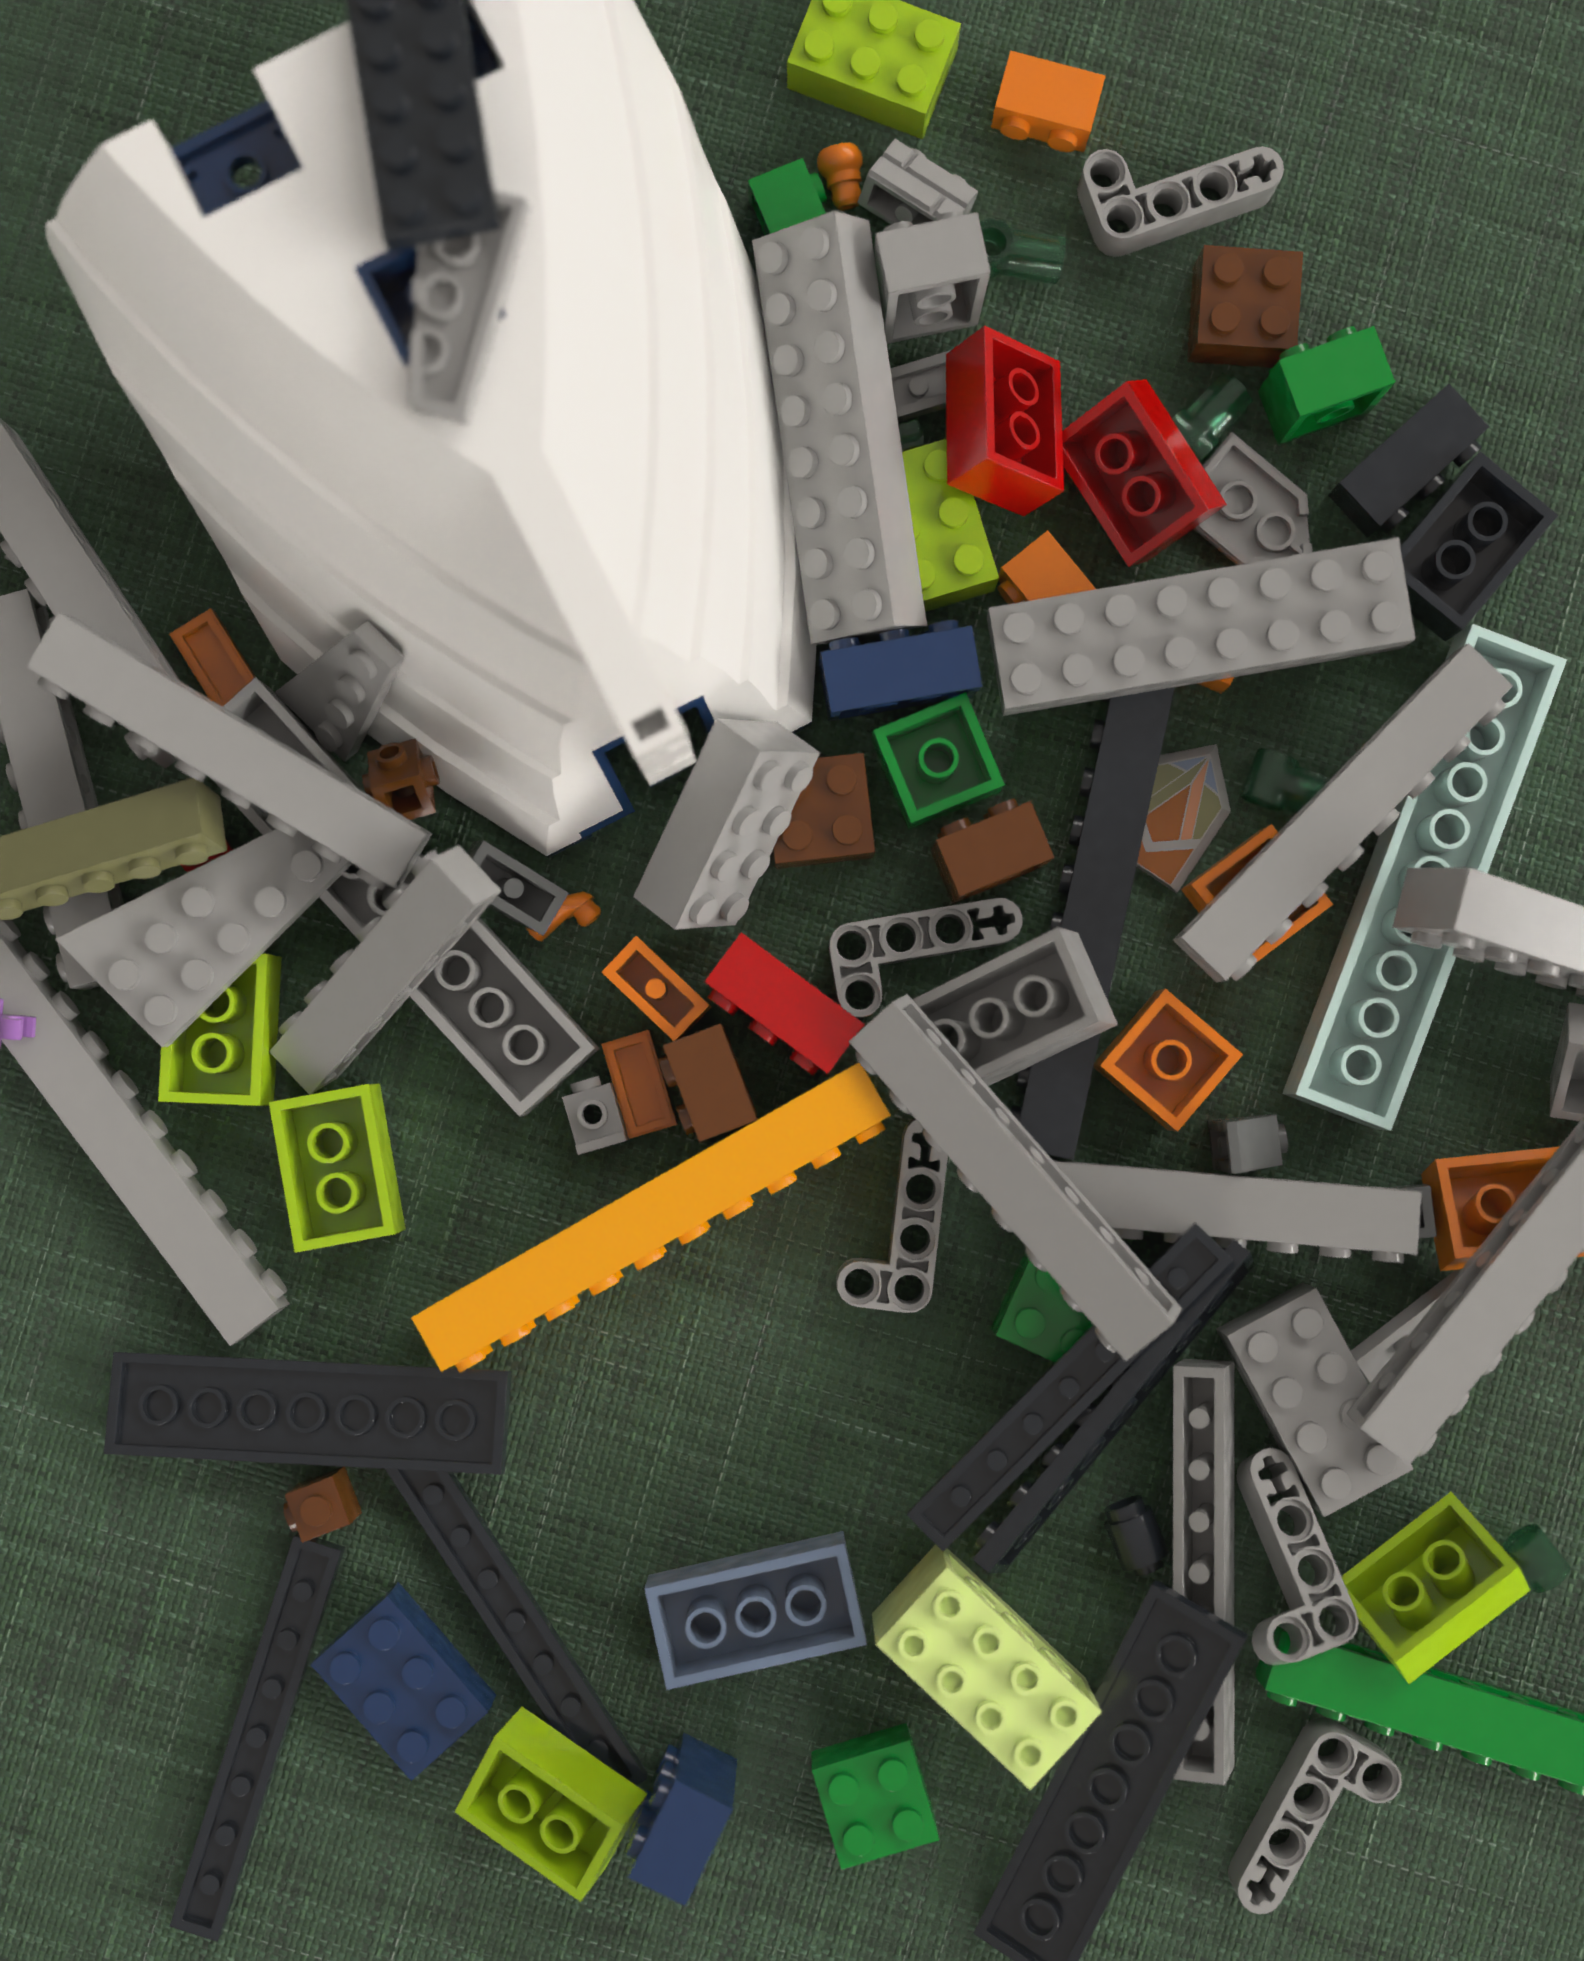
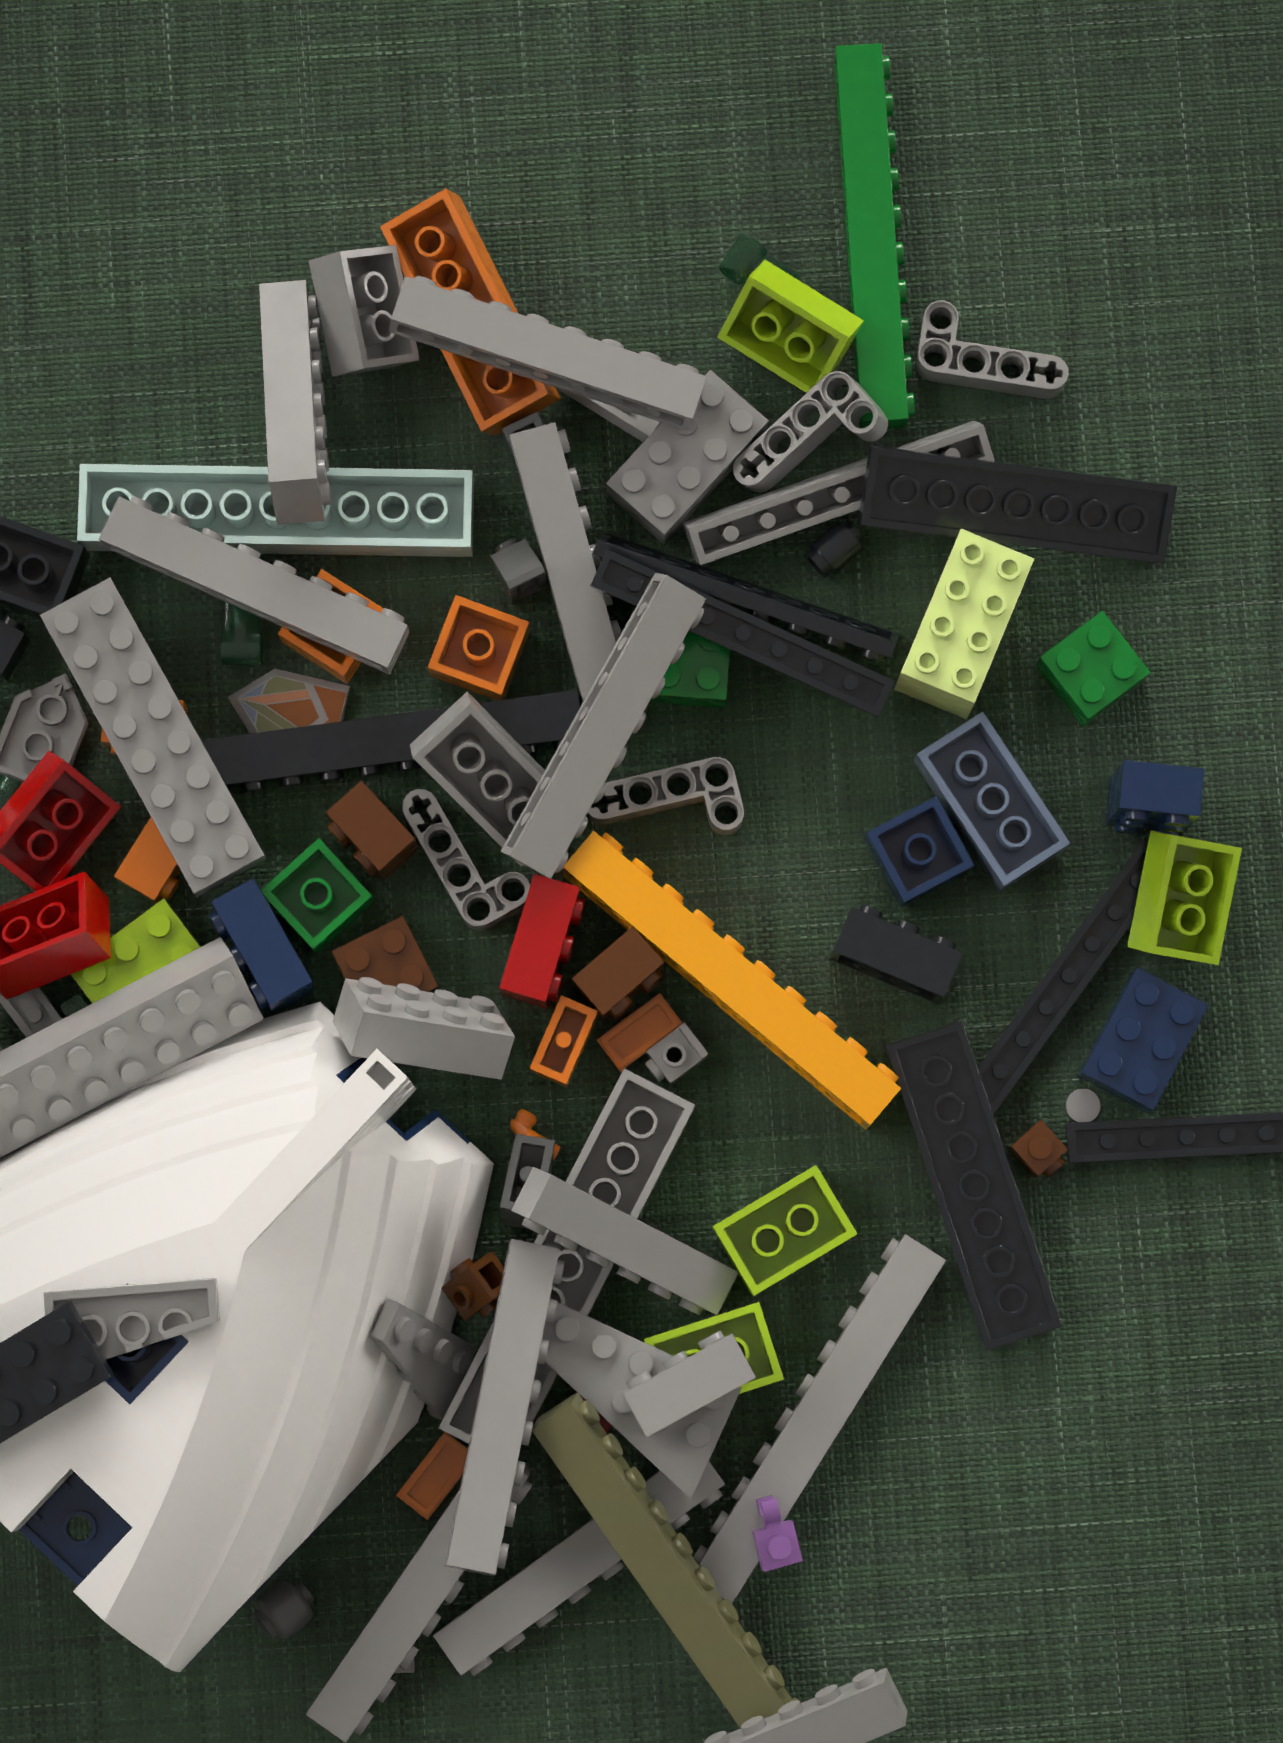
camera: 115 degrees left, 5 degrees down
(123, 436) = (283, 1609): none -> dark grey head
(171, 980) = (687, 1383): none -> light grey brick
(360, 1575) = (1083, 1105): none -> light grey sticker
(613, 1426) = (896, 954): none -> black brick
(727, 1498) = (918, 851): none -> dark blue brick

